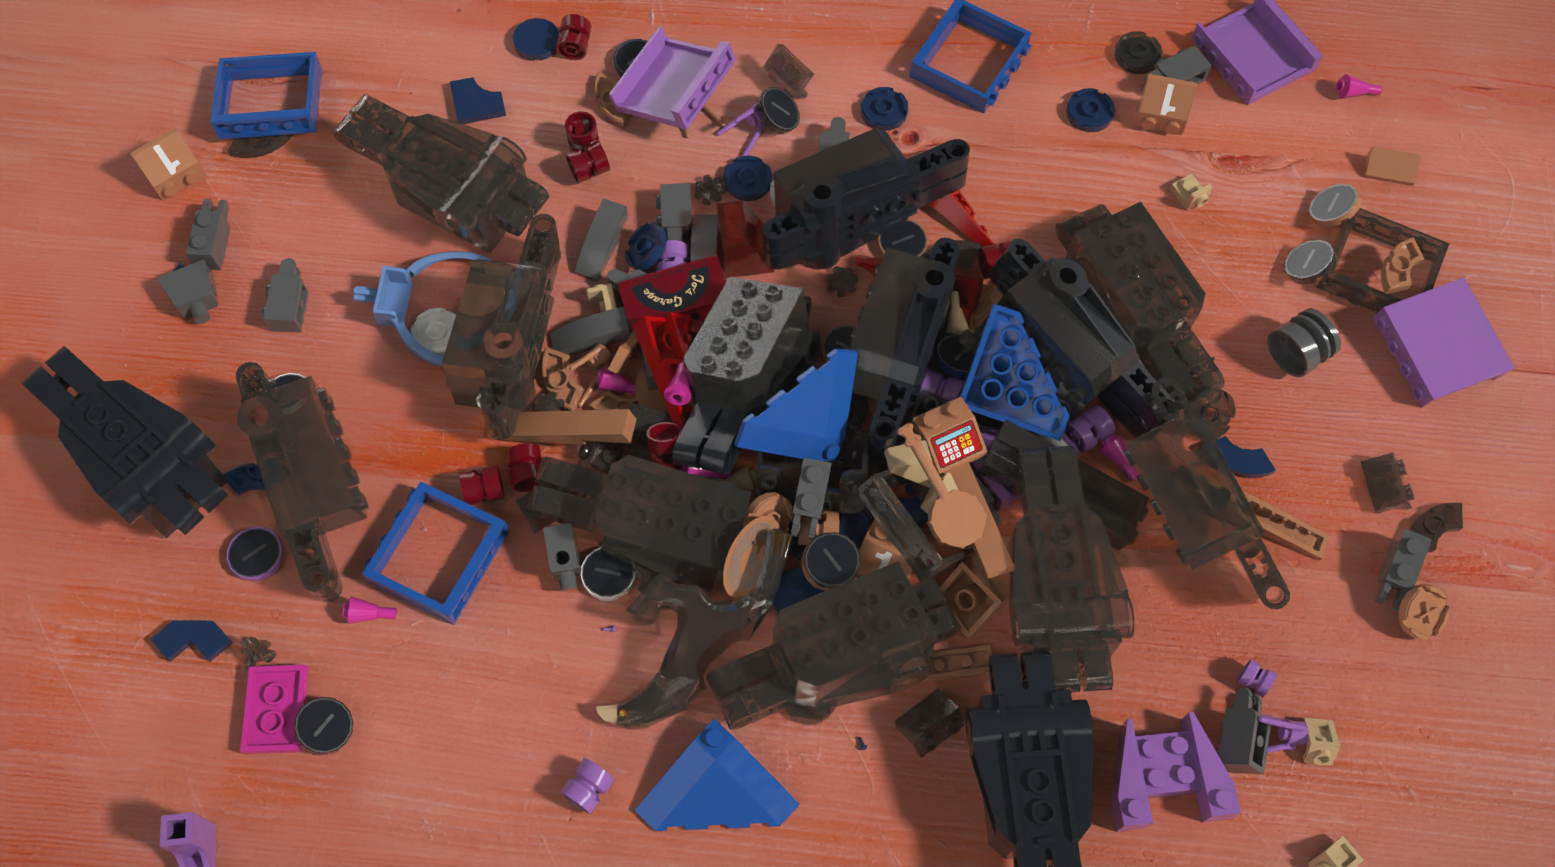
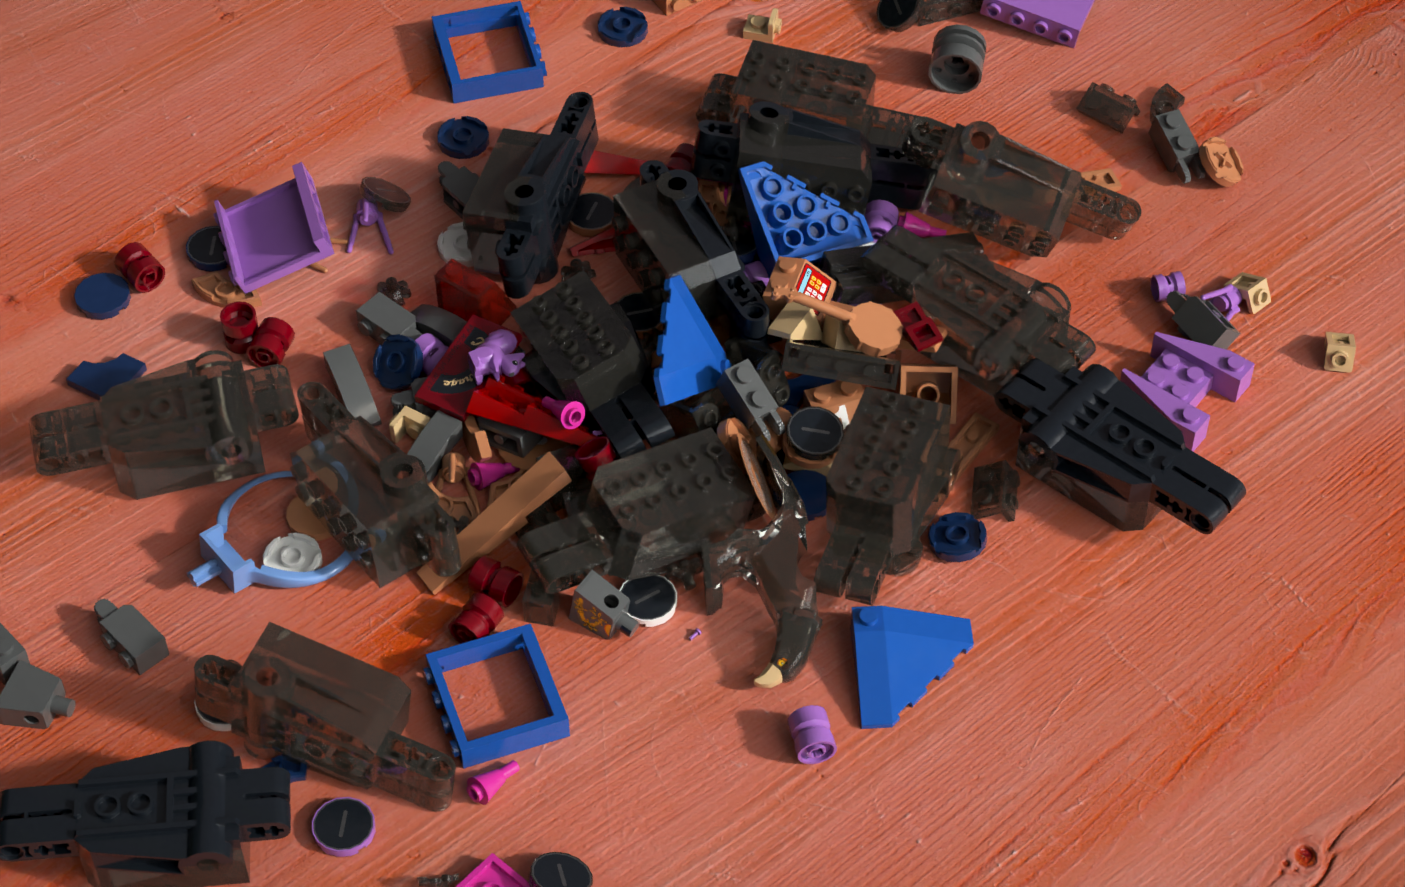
camera: 45 degrees left, 15 degrees down
(685, 298) = (495, 357): none -> medium lavender animal
(747, 178) = (414, 262): dark blue tile -> none
(788, 71) = (359, 160): clear smoke bracket -> none
(862, 731) = (957, 537): none -> dark blue tile
(992, 547) = (917, 327): none -> dark red slope

